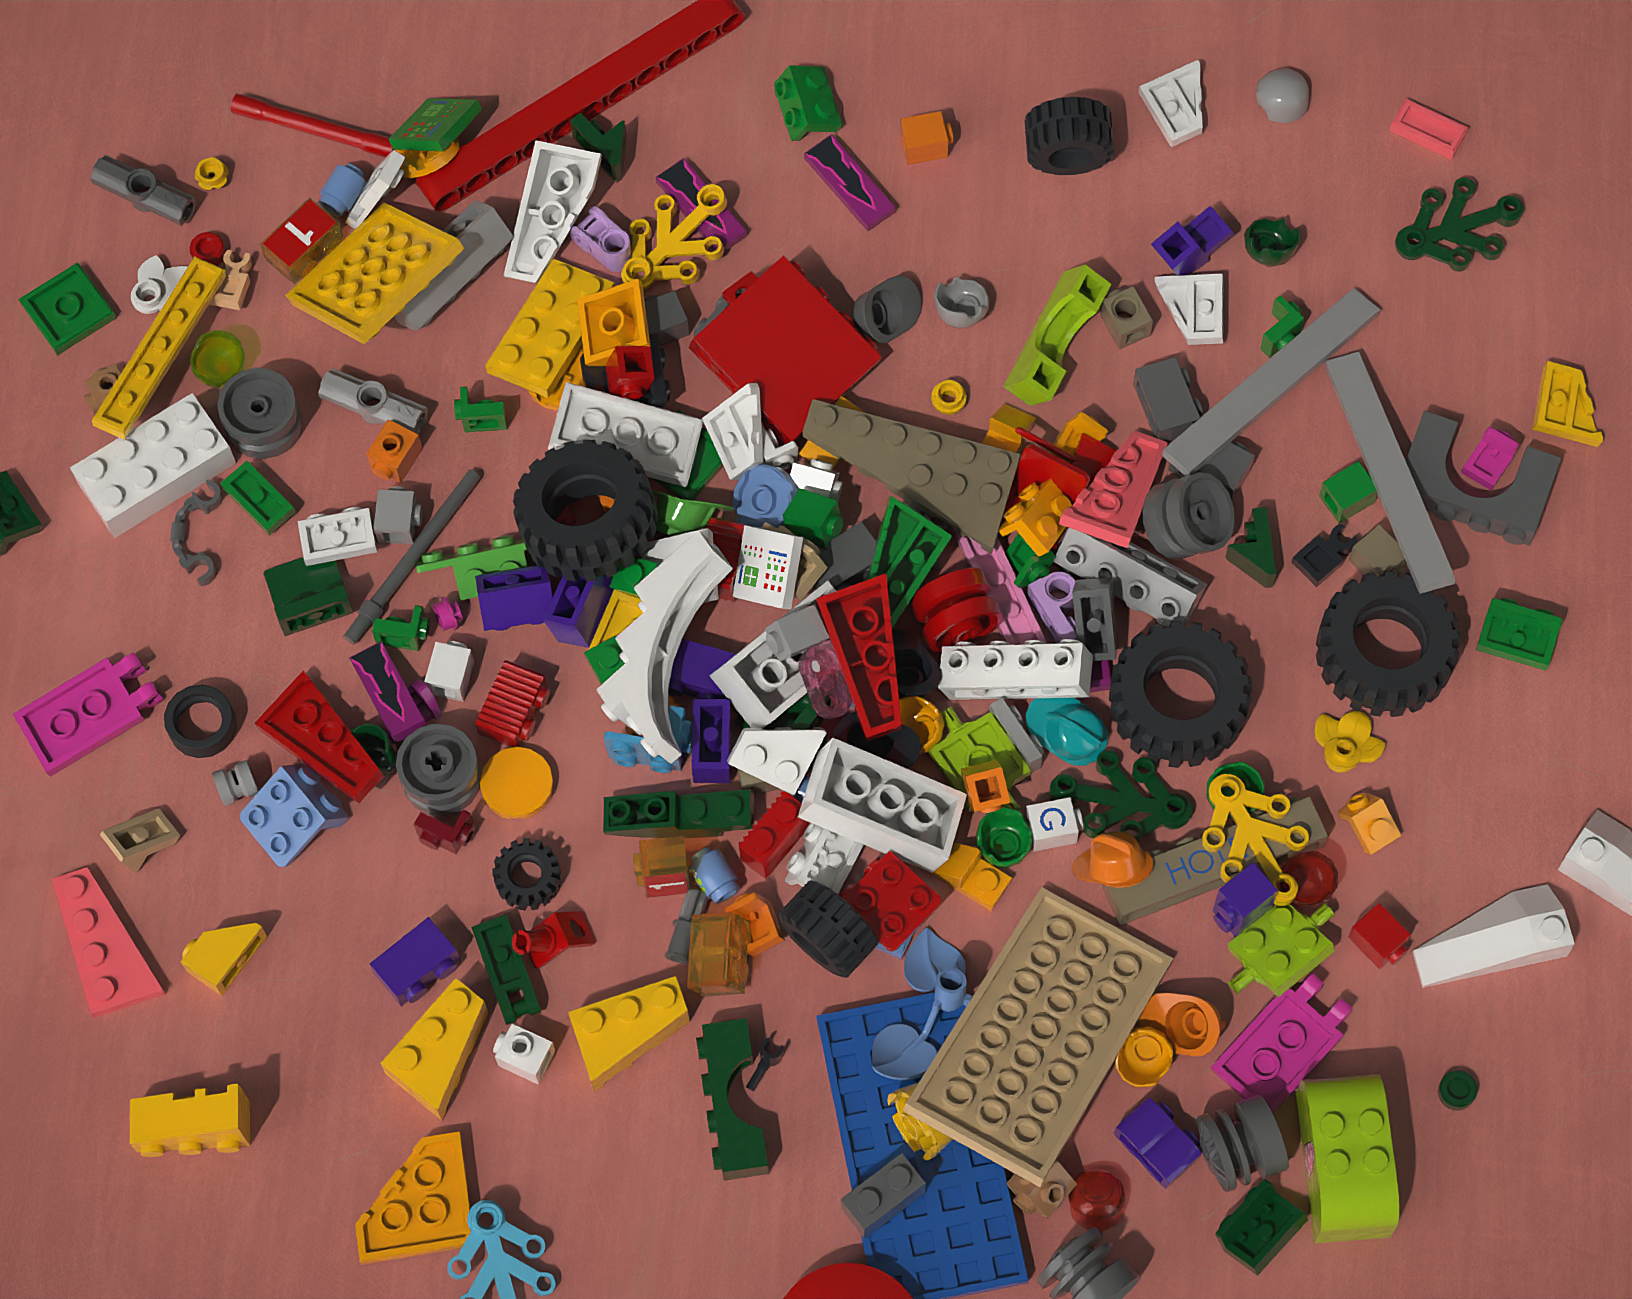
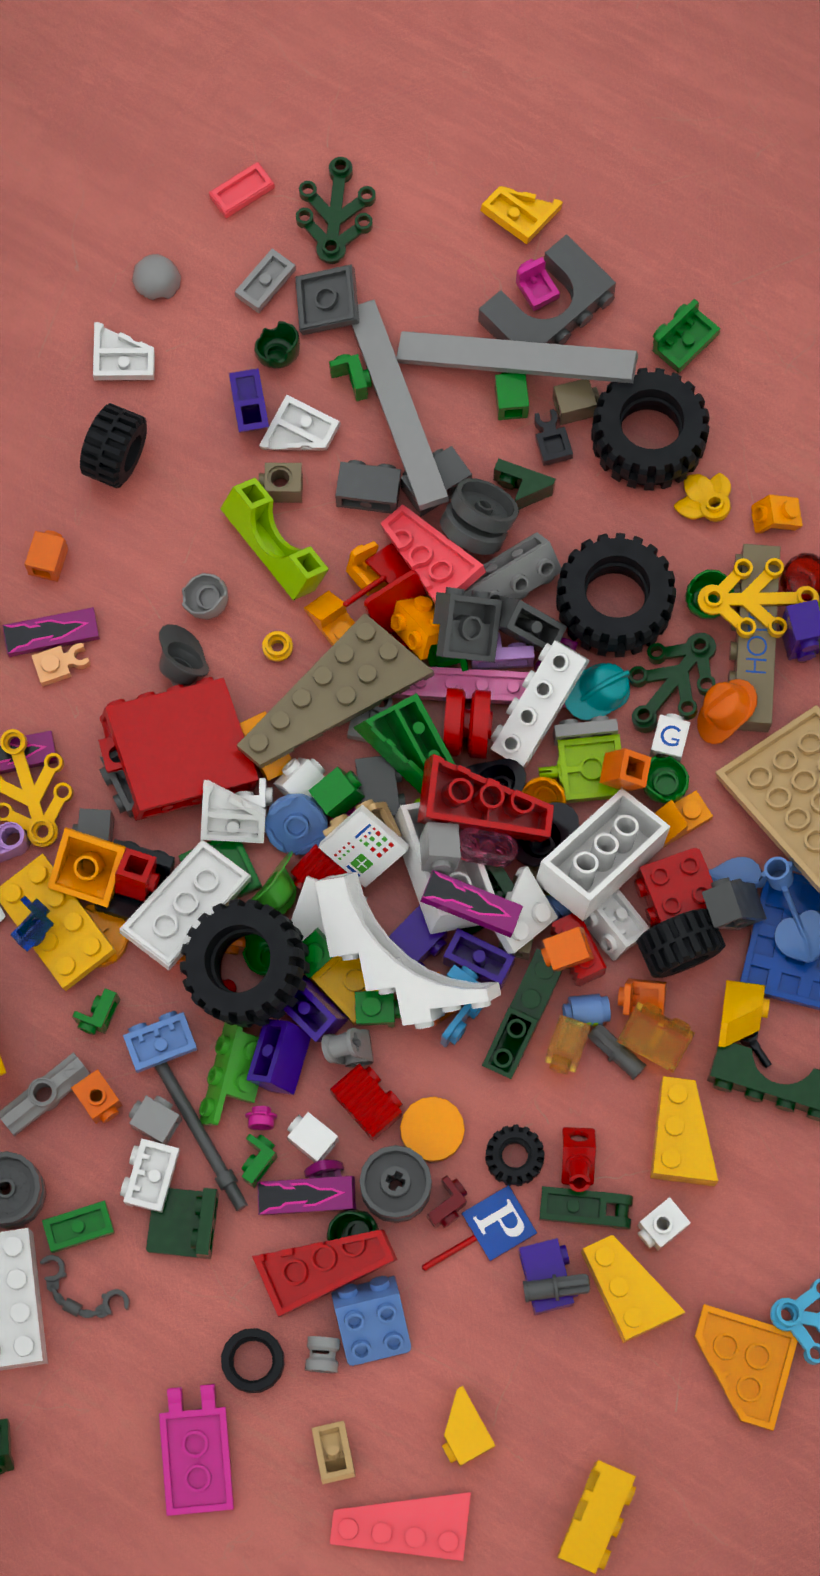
camera: 65 degrees left, 5 degrees up
(401, 967) = (556, 1287): none -> dark grey axle
(448, 893) = (496, 1224): none -> blue piece
(476, 480) = (159, 1041): none -> medium blue bracket
(528, 306) = (34, 927): none -> clear blue bracket
(556, 657) = (348, 1048): none -> light grey piece
(752, 690) = (471, 903): none -> tile
(758, 813) = (567, 949): none -> orange brick
(785, 1026) = (742, 1011): none -> yellow slope
(819, 202) = (55, 665): none -> light nougat plate
(895, 961) = (733, 904): none -> dark grey brick
(1054, 552) = (467, 624): none -> dark grey plate
(1339, 197) = (265, 280): none -> light grey plate
(1352, 264) = (327, 299): none -> dark grey plate

